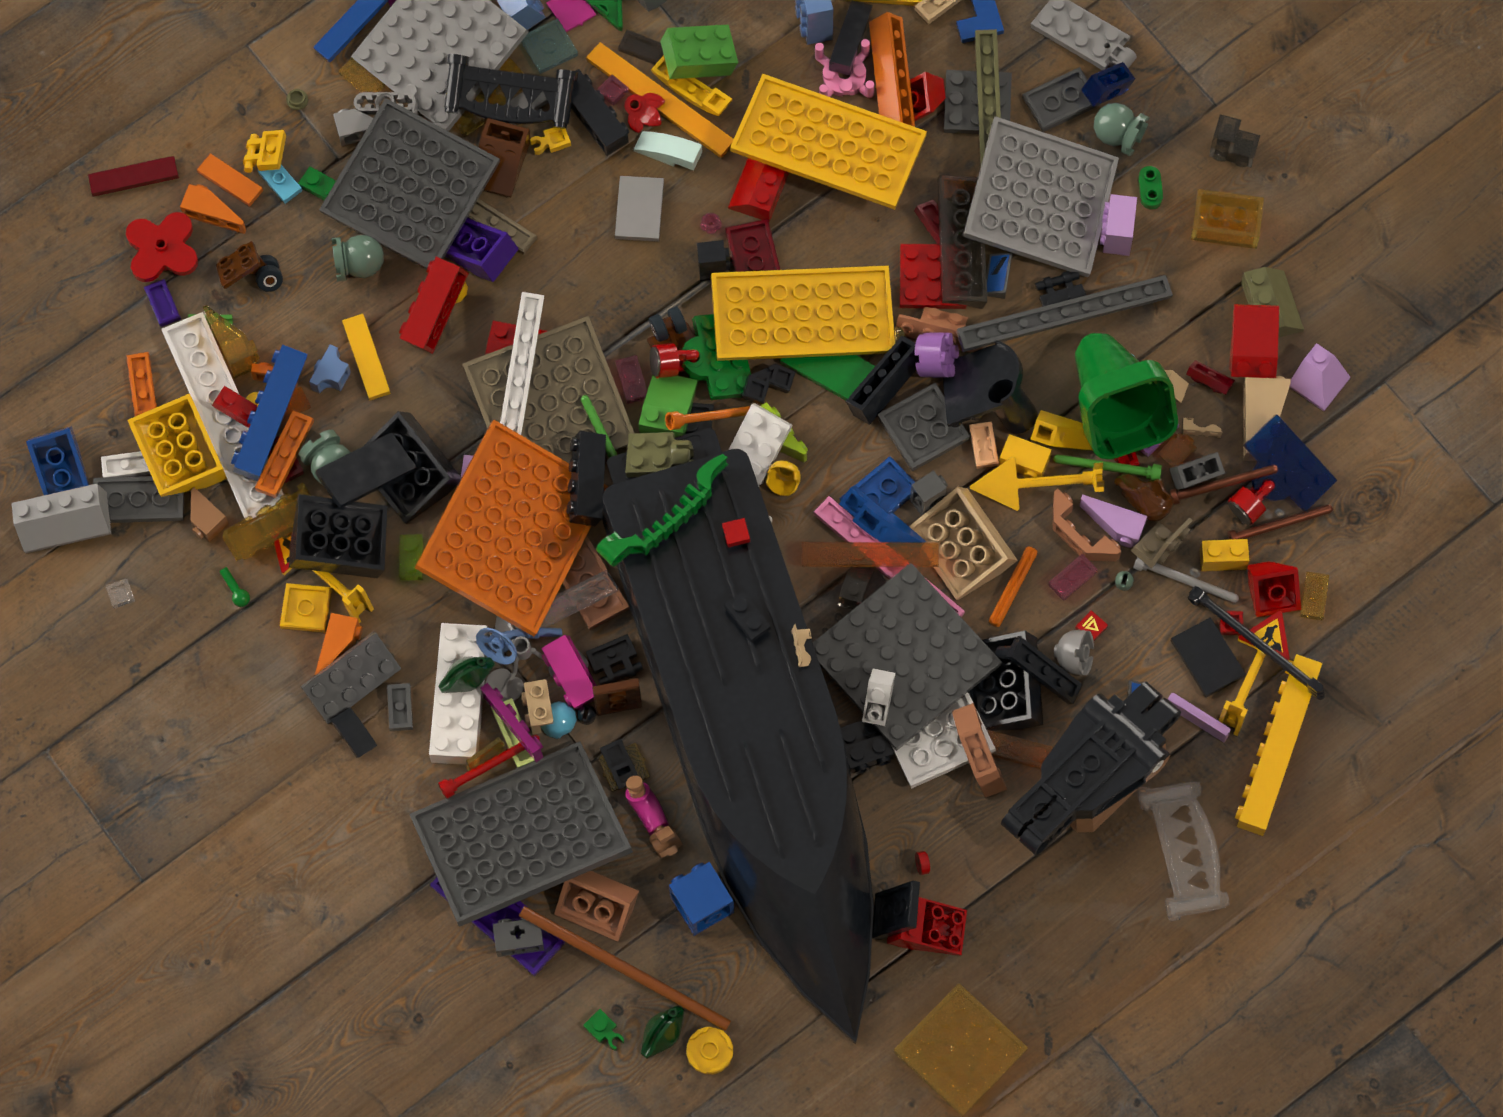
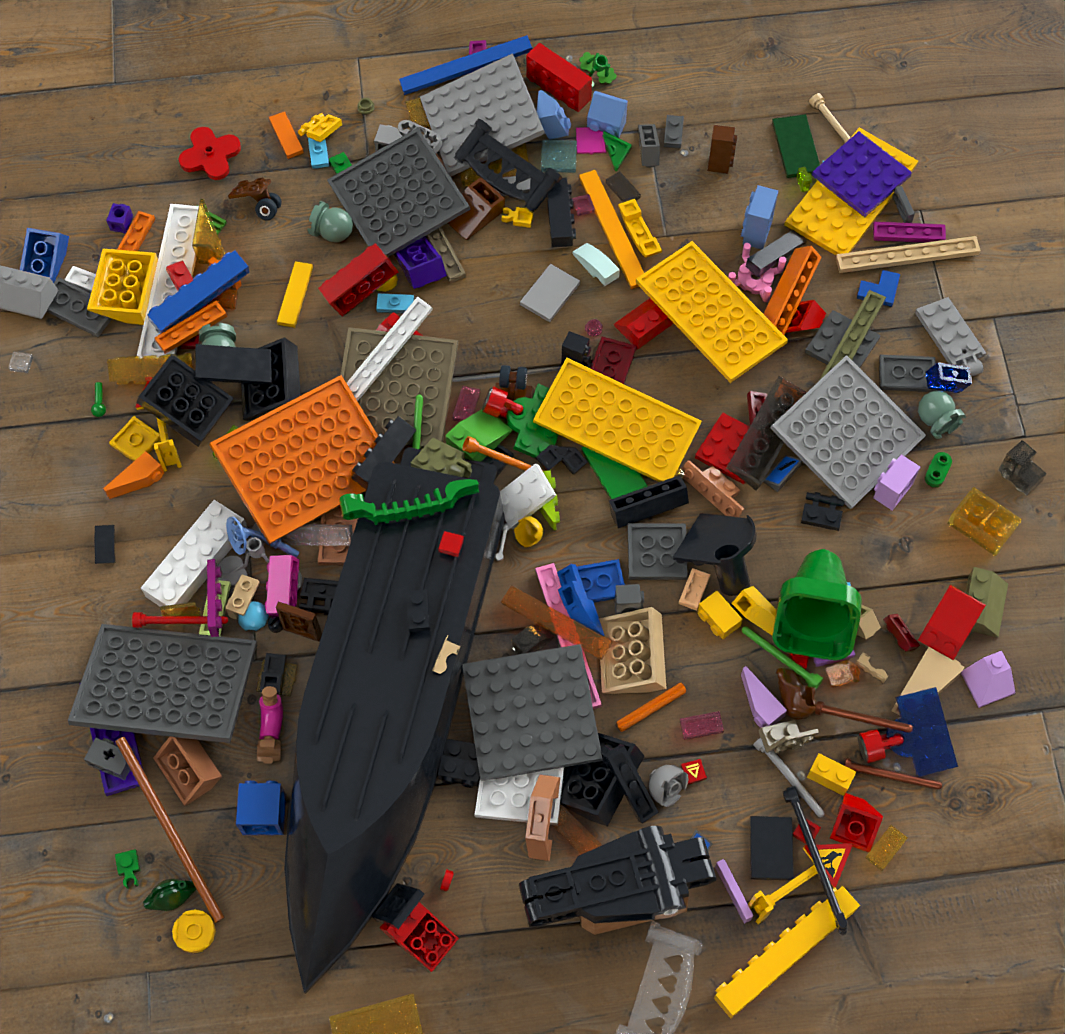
camera: 30 degrees right, 5 degrees down
(113, 383) = (119, 218): none -> dark purple brick
(133, 176) = (225, 101): dark red tile -> none
(162, 303) = (186, 189): dark purple tile -> none
(205, 206) = (255, 141): orange slope -> none
(205, 517) = (111, 341): medium nougat slope -> none
(329, 371) = (262, 290): medium blue brick -> none
(351, 677) = (128, 503): dark grey plate -> none
(400, 707) = (149, 544): dark grey plate -> none
(466, 674) = (203, 544): dark green hat -> none
(481, 309) = (393, 302): none -> medium azure plate
(645, 113) = (597, 230): red plate -> none
(699, 51) = (659, 207): bright green brick -> none
(878, 697) = (489, 730): white slope -> none
(936, 354) = (696, 502): medium lavender brick -> none
(1003, 485) = (690, 626): yellow piece -> none
(1064, 313) = (815, 524): dark grey plate -> none
(1102, 551) = (735, 717): nougat slope -> none
(1118, 580) = (744, 753): sand green hinge -> none
(1197, 470) = (848, 697): dark grey brick -> none

